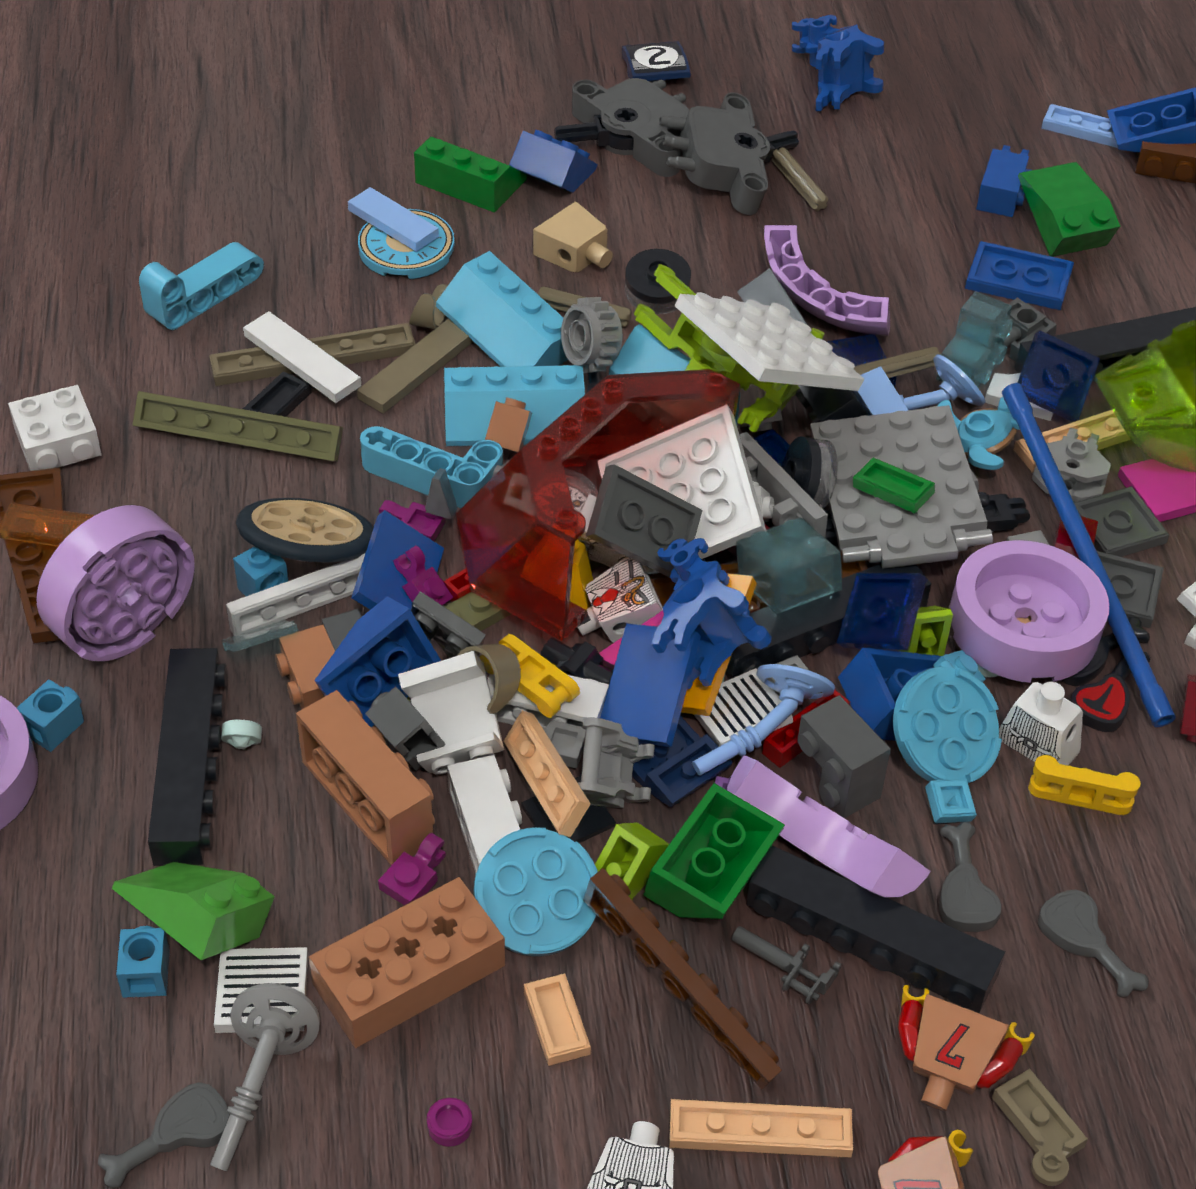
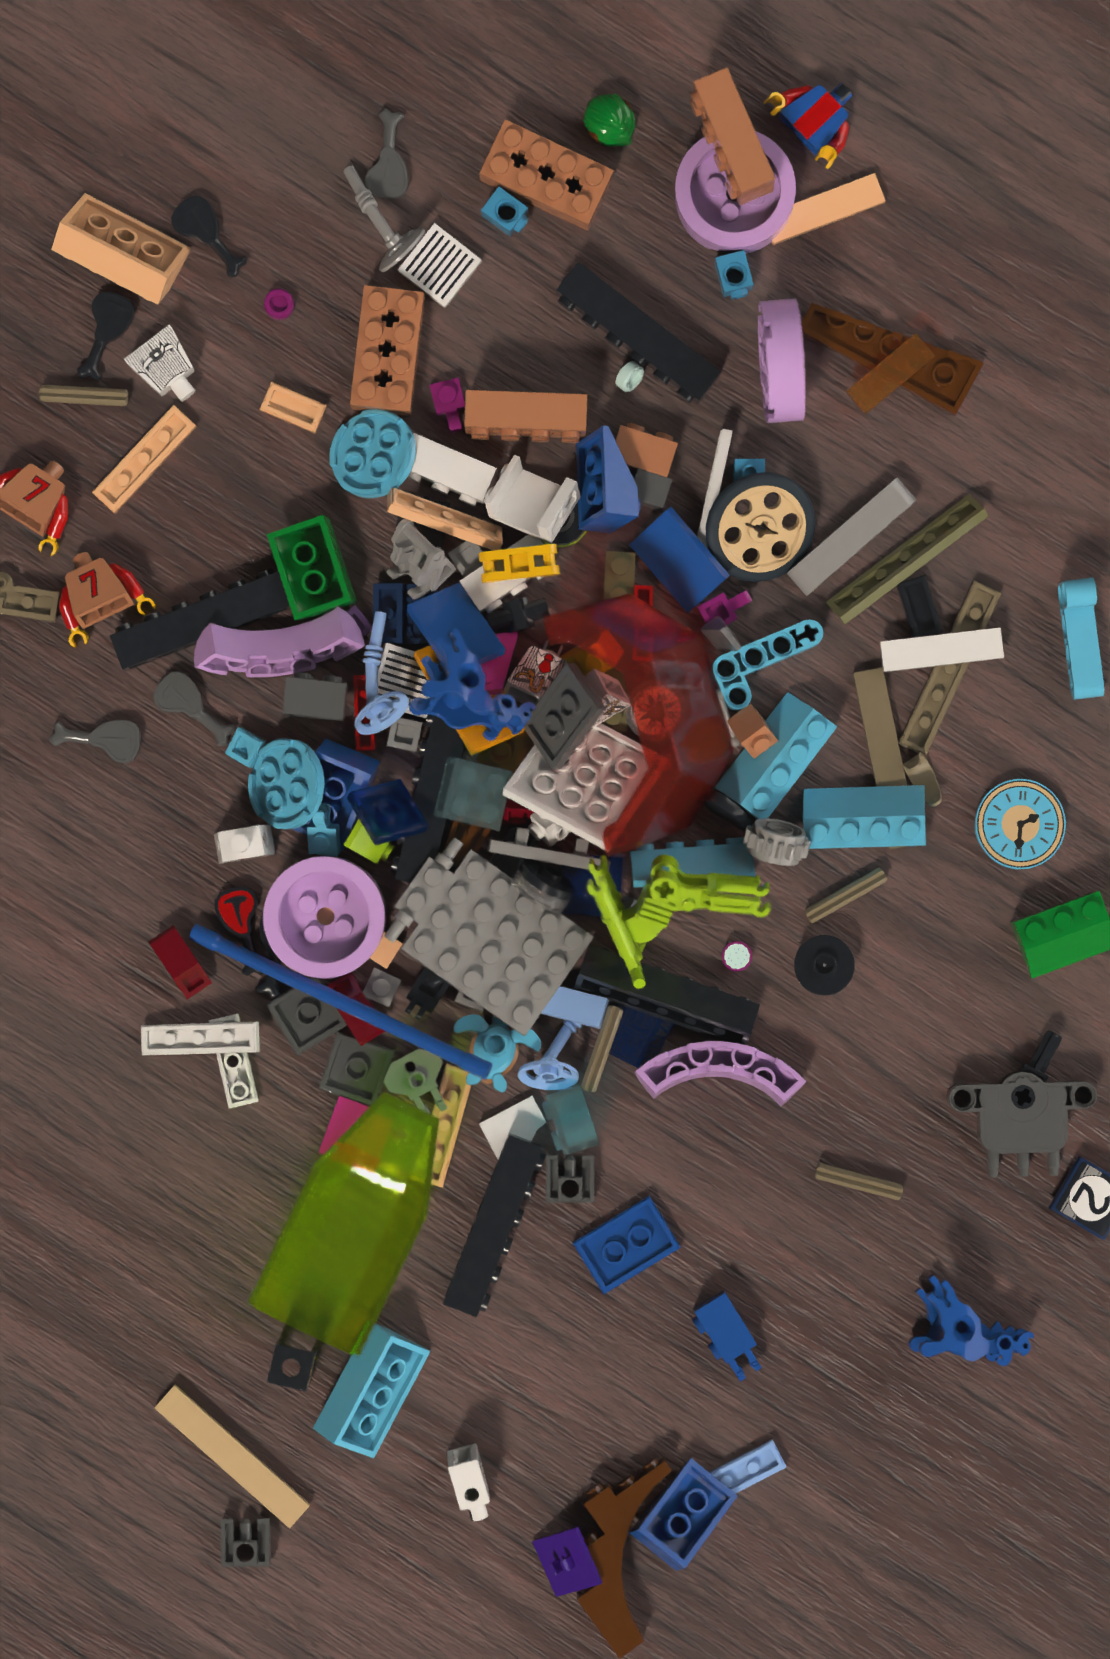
camera: 130 degrees right, 40 degrees up
(55, 429) = (994, 433): white brick -> none
(65, 950) = (544, 155): none -> nougat brick
(200, 905) = (518, 260): bright green slope -> none
(250, 473) = (851, 536): none -> light grey beam
(259, 635) = (696, 438): clear light blue piece -> none
(393, 219) = (1045, 826): light blue tile -> none
(403, 726) = (538, 459): dark grey brick -> none
(420, 579) = (654, 568): magenta plate -> none
(445, 626) = (595, 542): dark grey tile -> none
(506, 671) = (534, 543): dark tan helmet -> none
(552, 160) = (1021, 1003): slope -> none
(572, 239) = (918, 944): tan torso -> none
(611, 903) = (273, 475): reddish brown wing -> none
(631, 854) = (352, 521): lime slope -> none
(726, 150) = (937, 1133): dark grey piece -> none
(769, 342) = (634, 916): white plate -> none
(788, 963) = (224, 558): dark grey piece -> none
(894, 485) = (479, 918): green tile -> none
(1057, 375) = (493, 1140): clear blue tile -> none
(1069, 209) = (652, 1336): green slope -> none
(1083, 786) = (189, 831): yellow plate -> none

